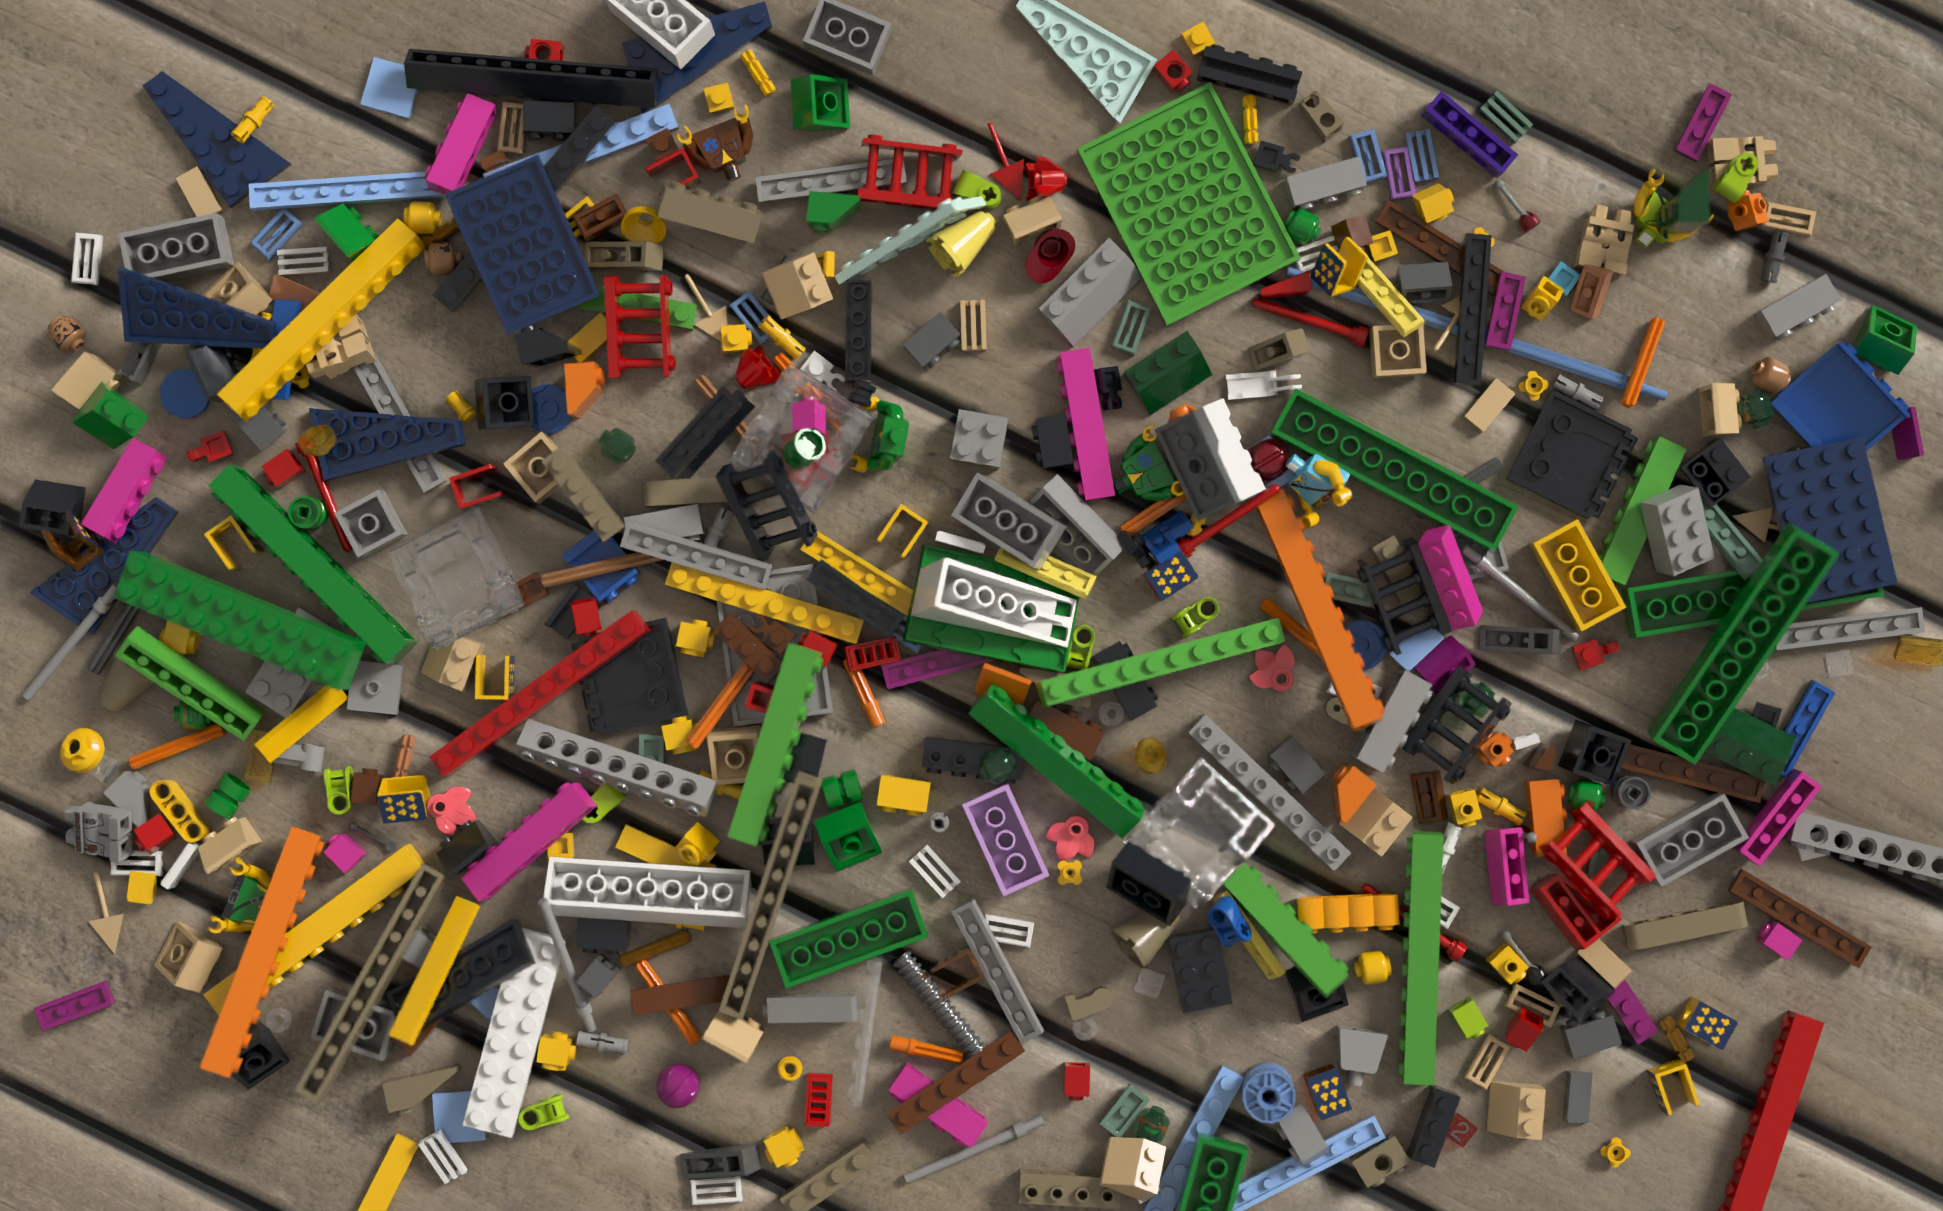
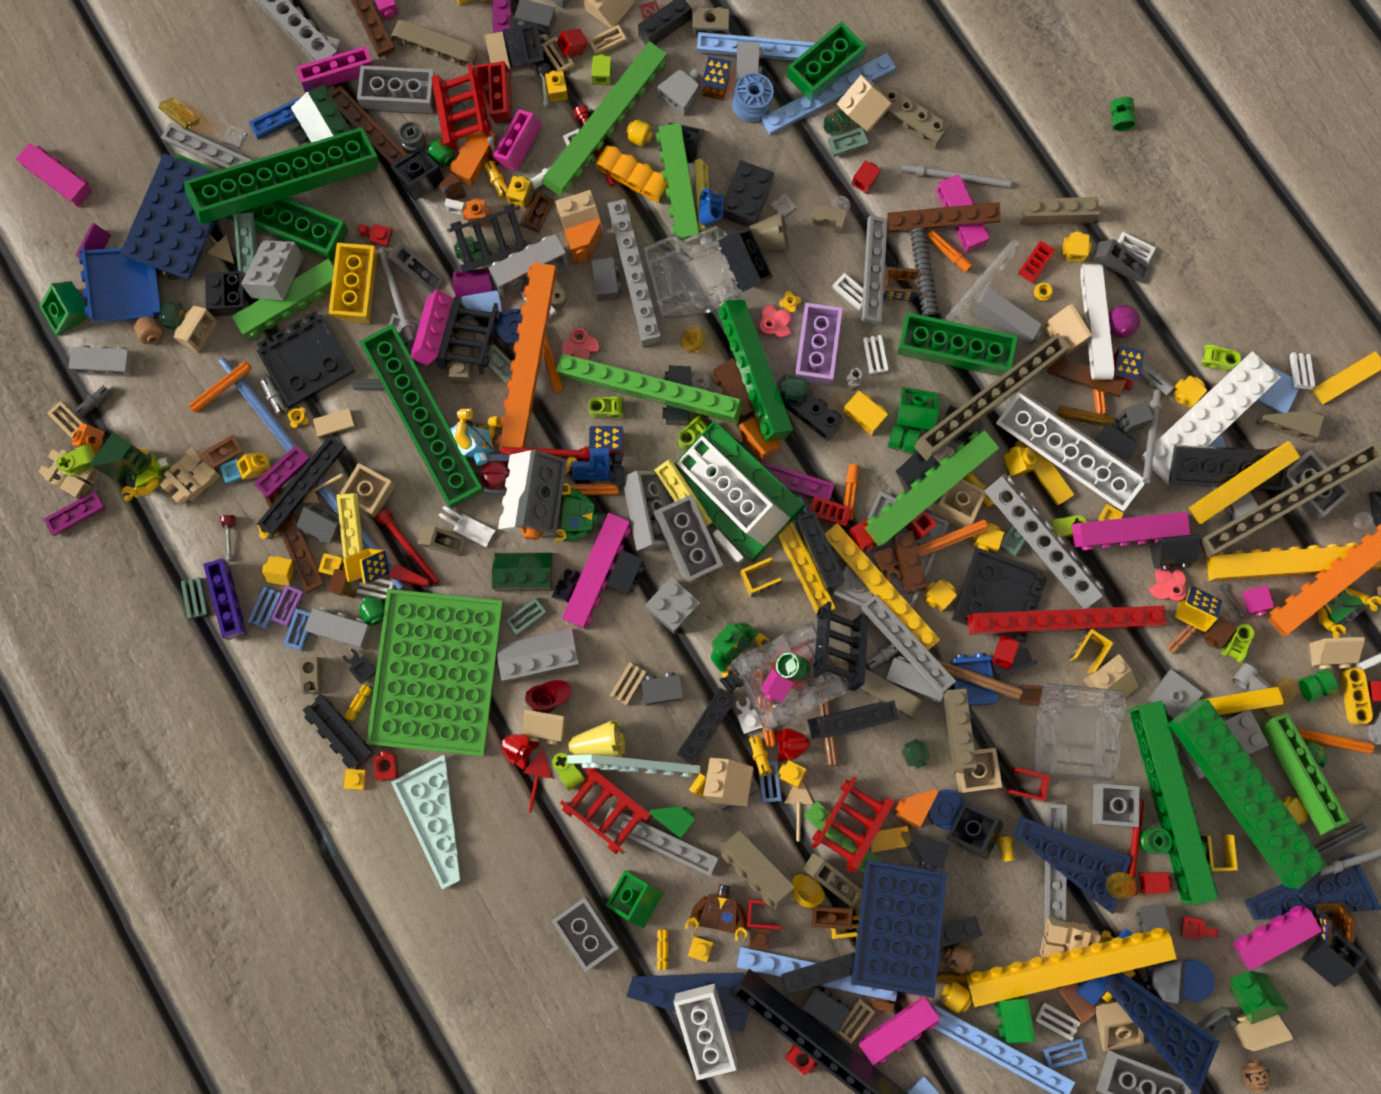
camera: 145 degrees left, 10 degrees down
(643, 1034) = (1128, 364): none -> dark blue piece
(707, 1065) = (1097, 322): none -> white beam

